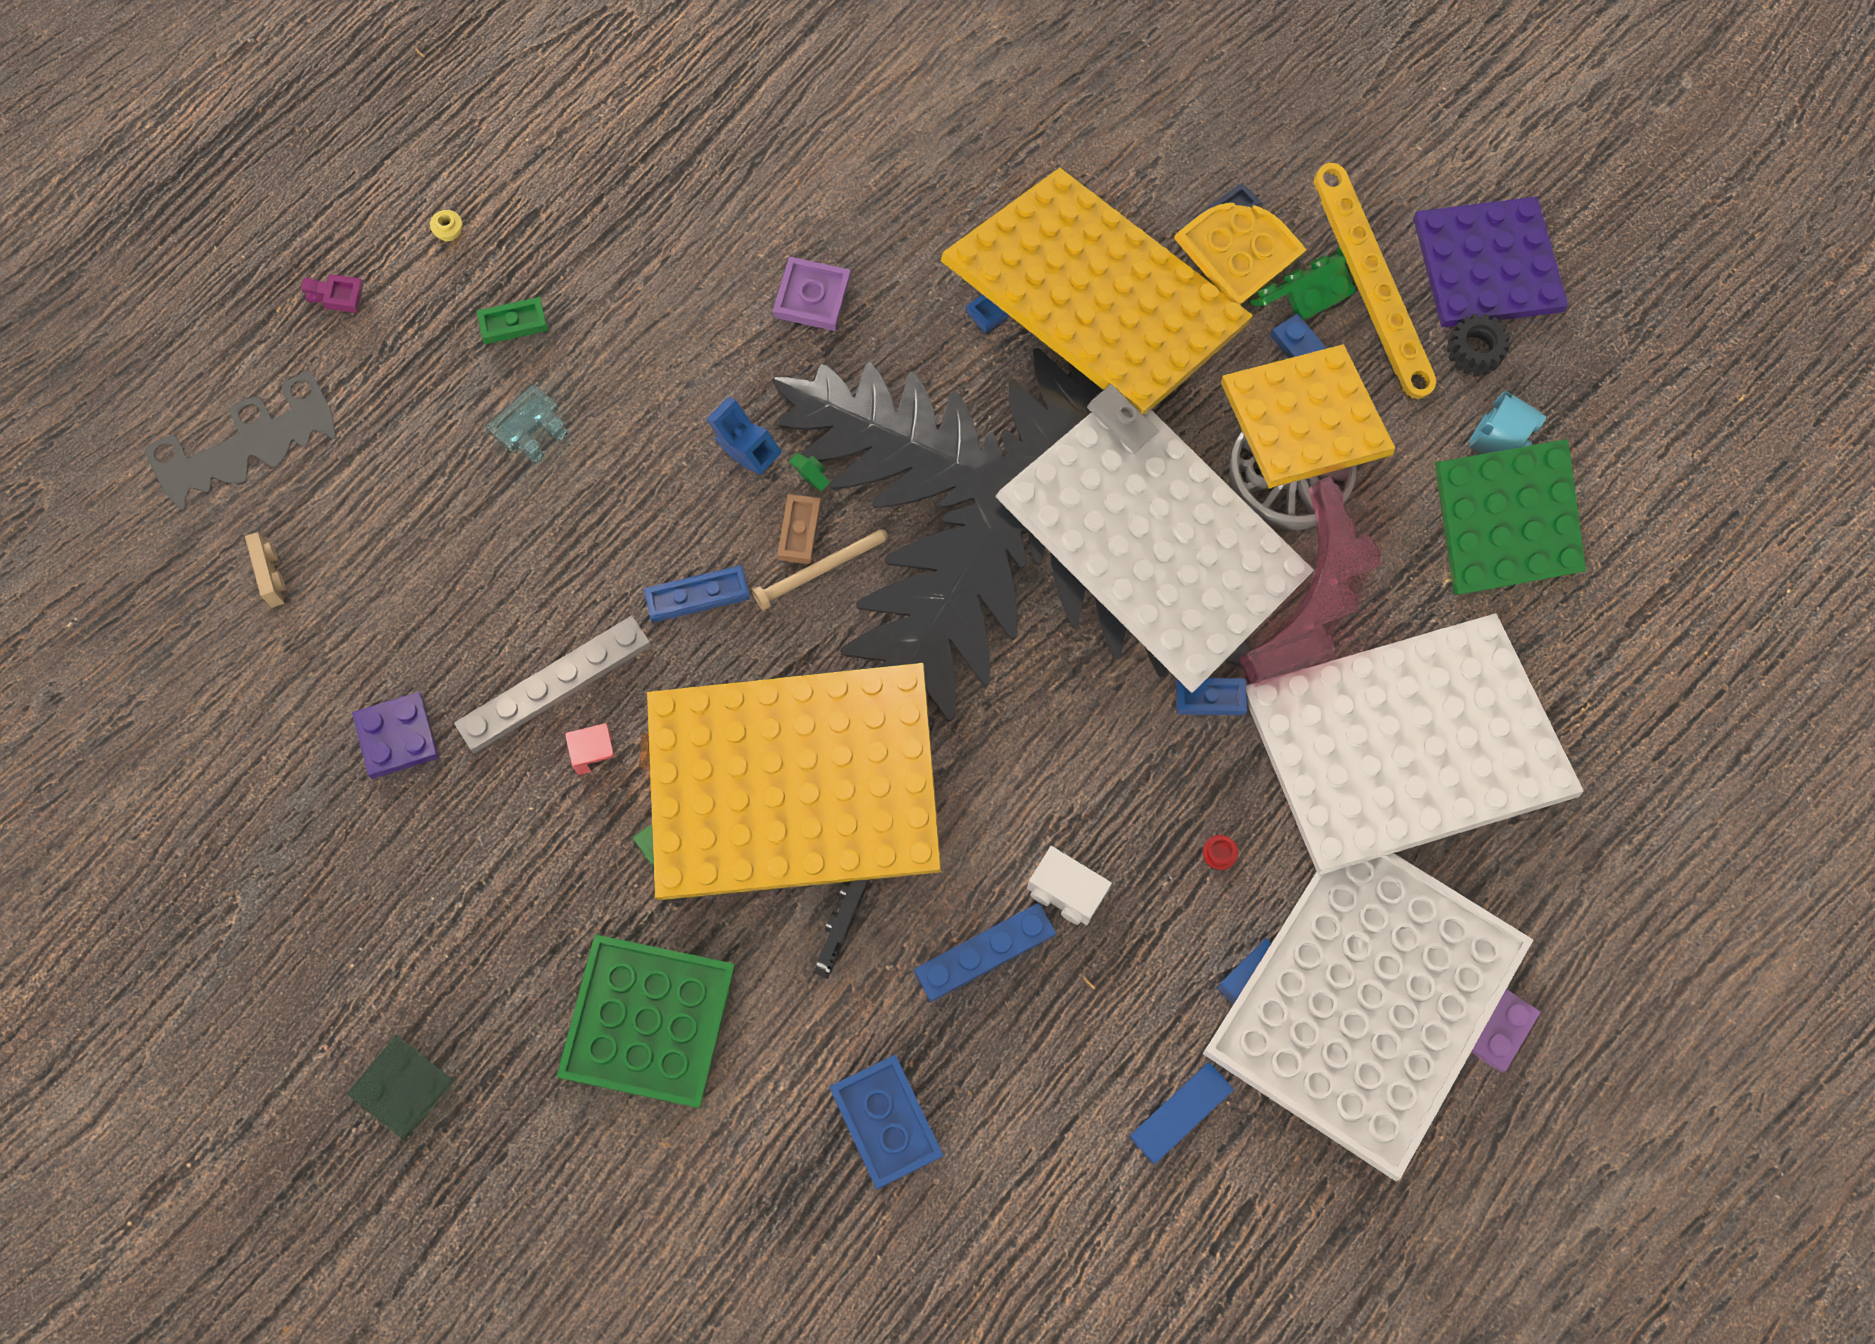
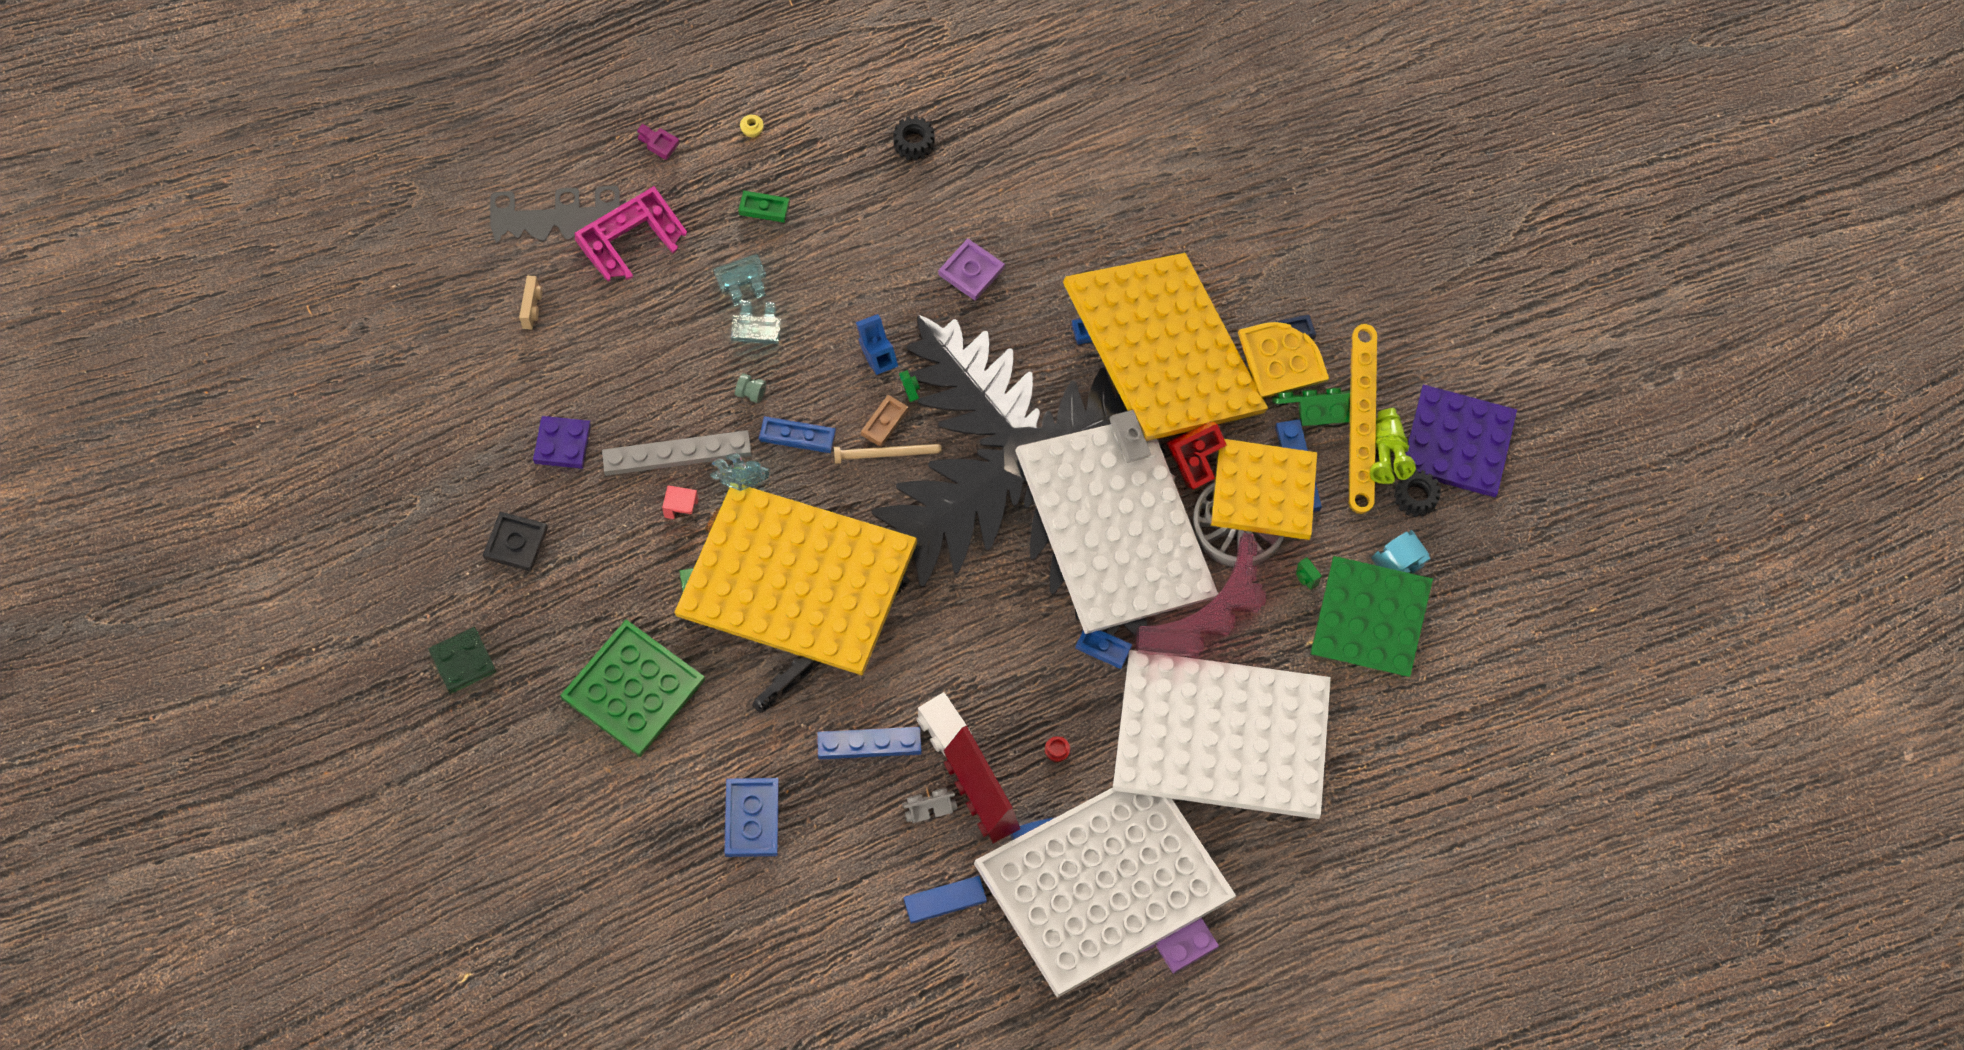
camera: 25 degrees right, 5 degrees down
(313, 446) = (647, 207): none -> dark pink wedge
(396, 895) = (515, 541): none -> black plate
(578, 480) = (756, 329): none -> clear light blue plate
(610, 559) = (751, 388): none -> sand green wheel
(651, 678) = (740, 474): none -> clear light blue plate
(659, 144) = (913, 126): none -> black tyre
(1112, 987) = (919, 806): none -> light grey hinge
(1160, 948) = (980, 786): none -> dark red slope
(1199, 408) = (1190, 453): none -> red brick
(1406, 497) = (1308, 574): none -> green plate
(1421, 291) = (1388, 439): none -> lime piece

